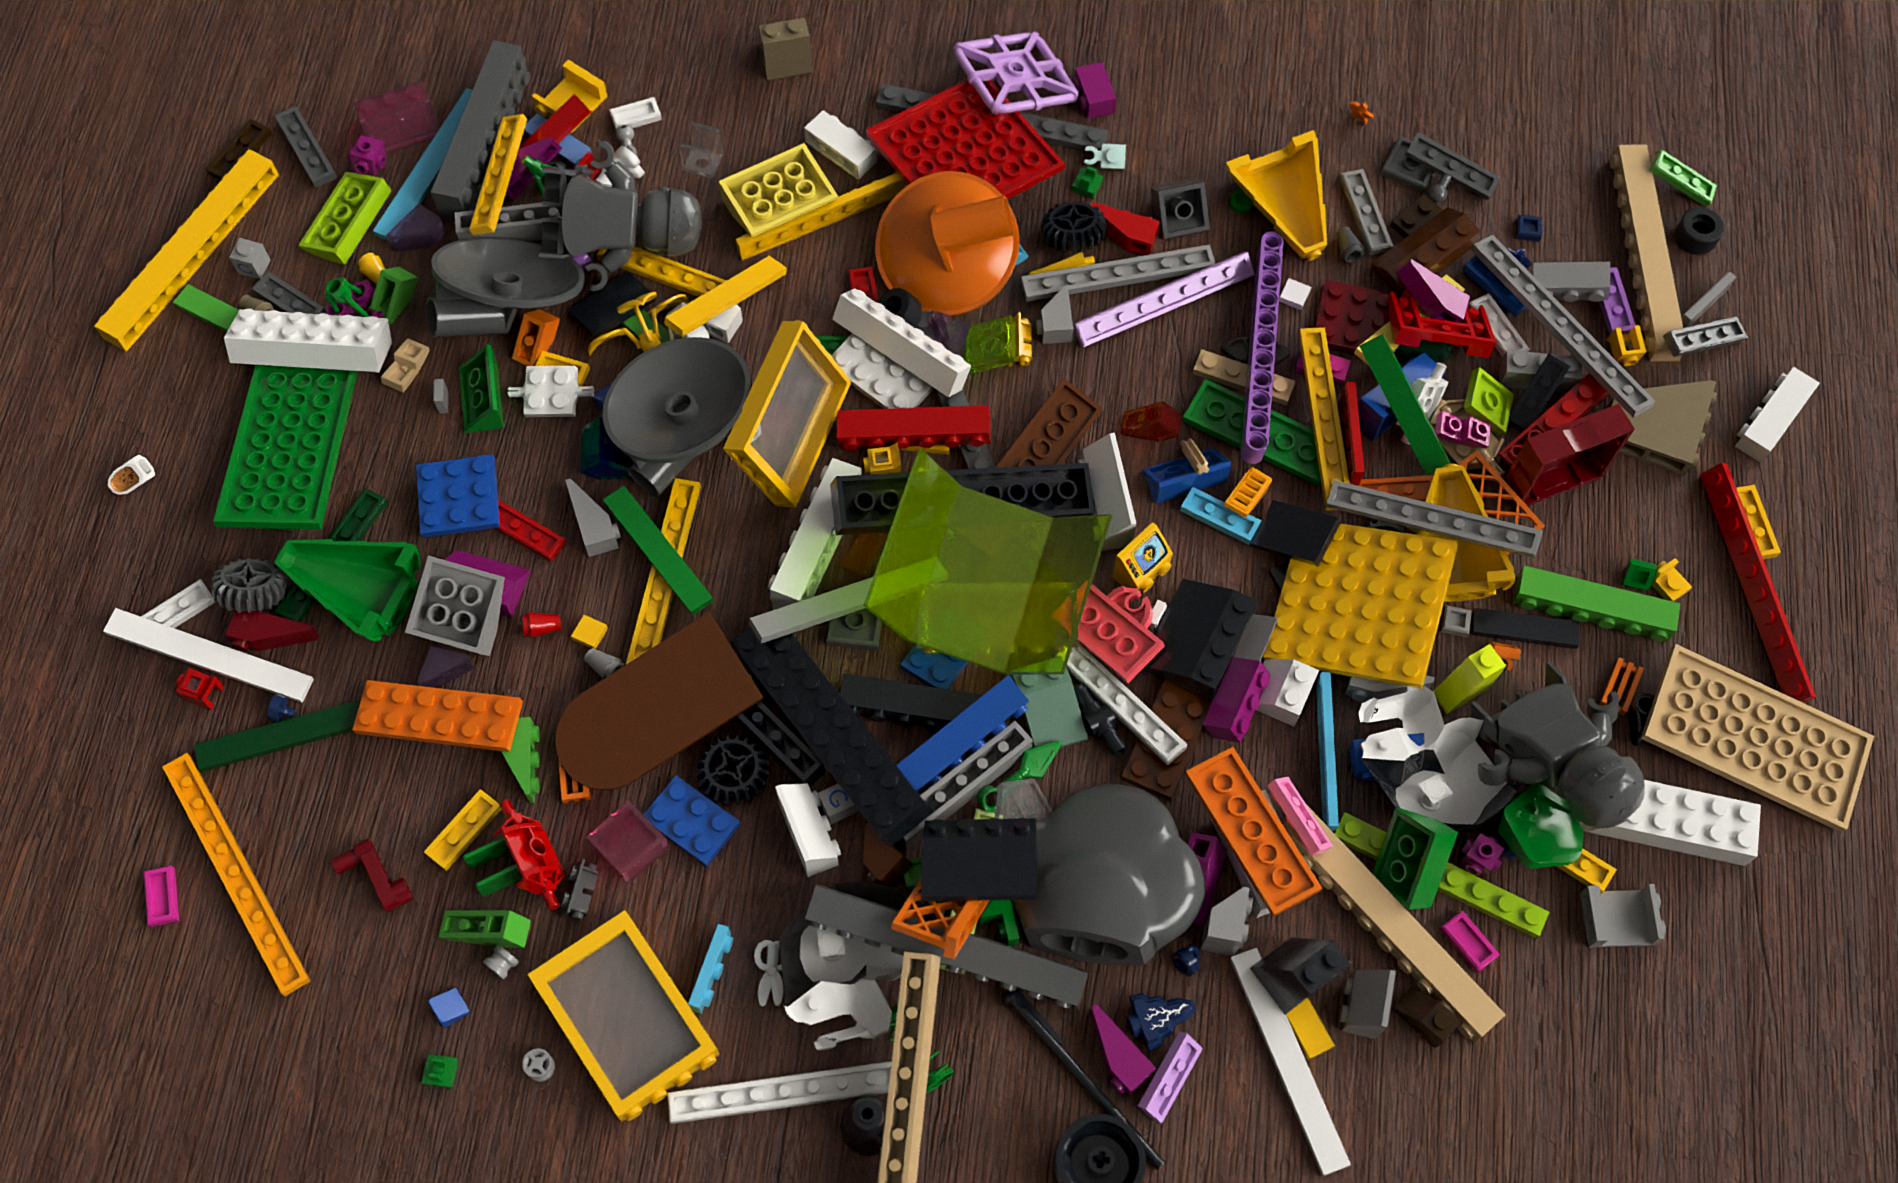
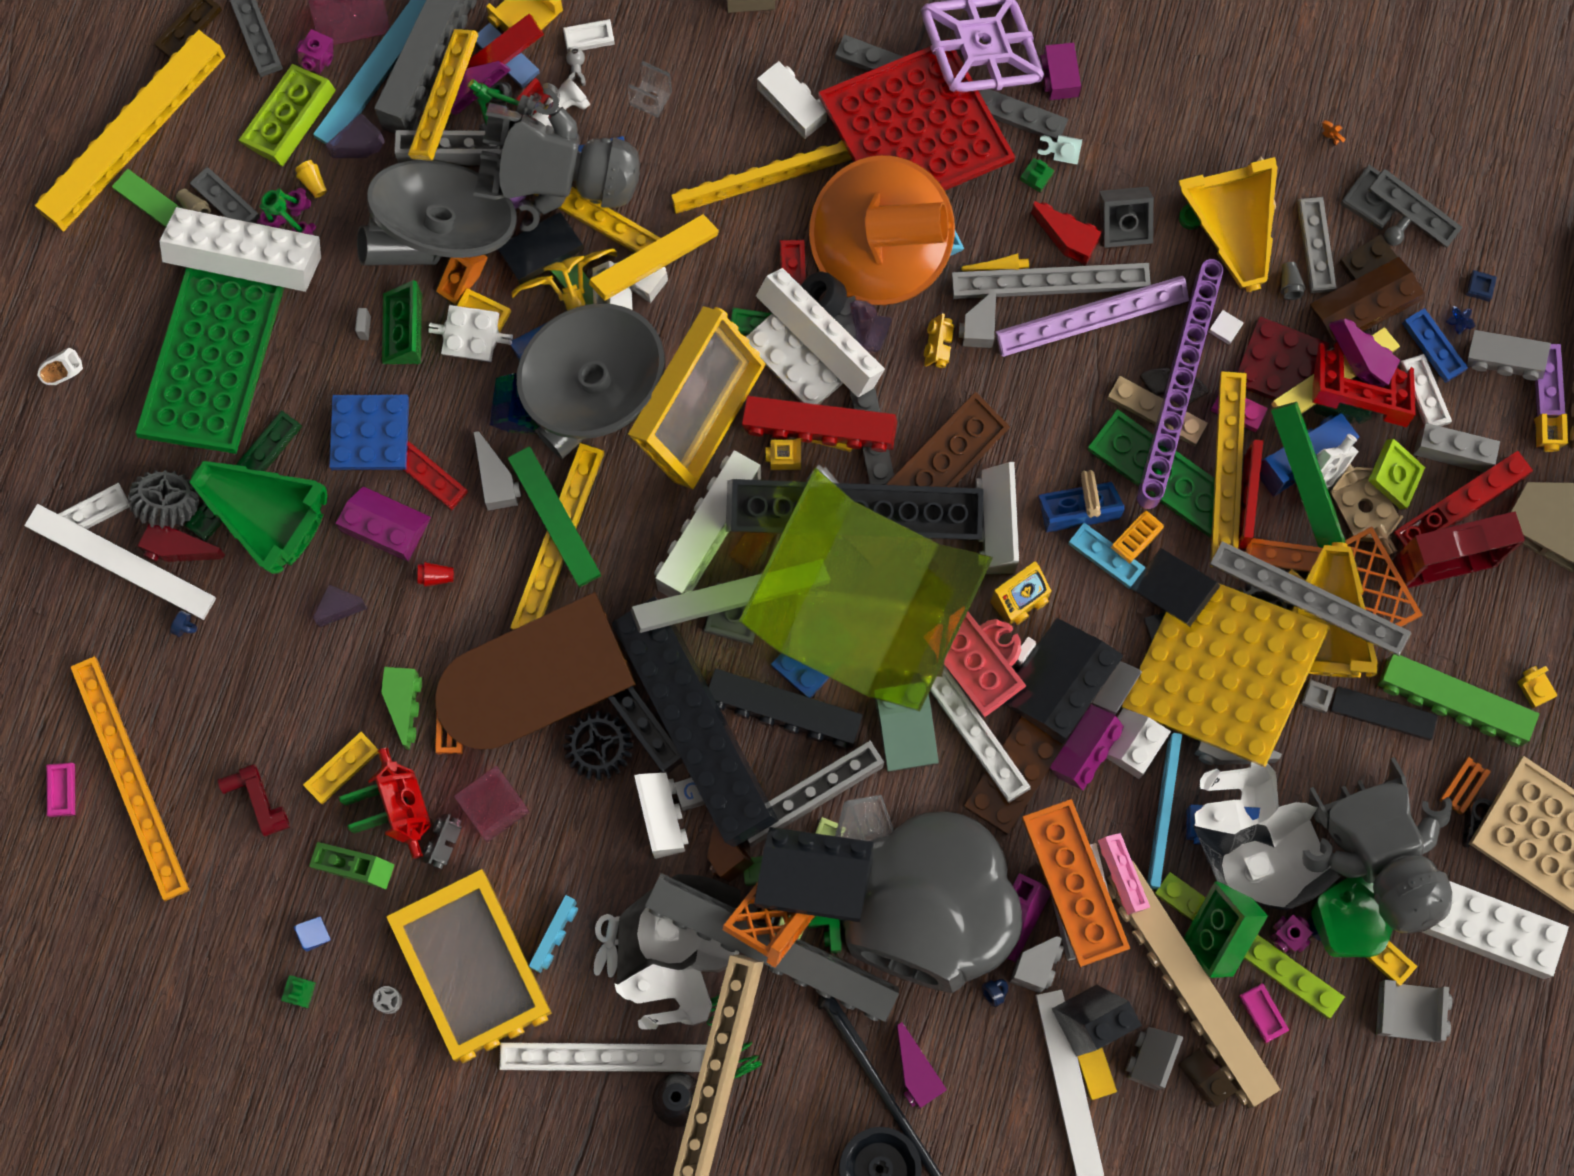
camera: 10 degrees right, 10 degrees up
(196, 687) = (107, 592): red window -> none
(249, 258) = (190, 149): light grey brick -> none
(276, 736) = (204, 647): dark green tile -> none
(393, 292) = (327, 206): bright green slope -> none
(406, 366) = (332, 285): tan slope -> none
(438, 715) = (329, 655): orange plate -> none
(457, 606) = (357, 550): light grey slope -> none
(500, 962) = (363, 899): light grey wheel -> none
(589, 632) = (480, 588): yellow tile -> none
(603, 663) = (490, 623): light grey cone -> none
(691, 821) = (553, 789): blue plate -> none
(776, 190) = (720, 147): light yellow slope -> none
(964, 734) = (819, 747): blue brick -> none
(991, 344) = (909, 343): clear neon green plate -> none
(1033, 765) = (882, 782): green piece -> none
(1073, 227) = (1027, 221): black gear -> none
(1099, 720) = (952, 747): black pin -> none
(1152, 422) = (1056, 449): clear red slope -> none
(1156, 1018) = (957, 1041): dark blue rock -> none
(1170, 1077) = (959, 1098): lavender plate -> none
(1465, 432) = (1363, 502): dark pink slope -> none
(1469, 679) = (1314, 761): neon yellow slope -> none
(1506, 652) = (1356, 734): orange tile -> none
(1538, 391) = (1448, 471): black tile -> none
(1563, 326) = (1487, 405): light grey plate -> none
(1639, 574) = (1507, 675): green tile -> none

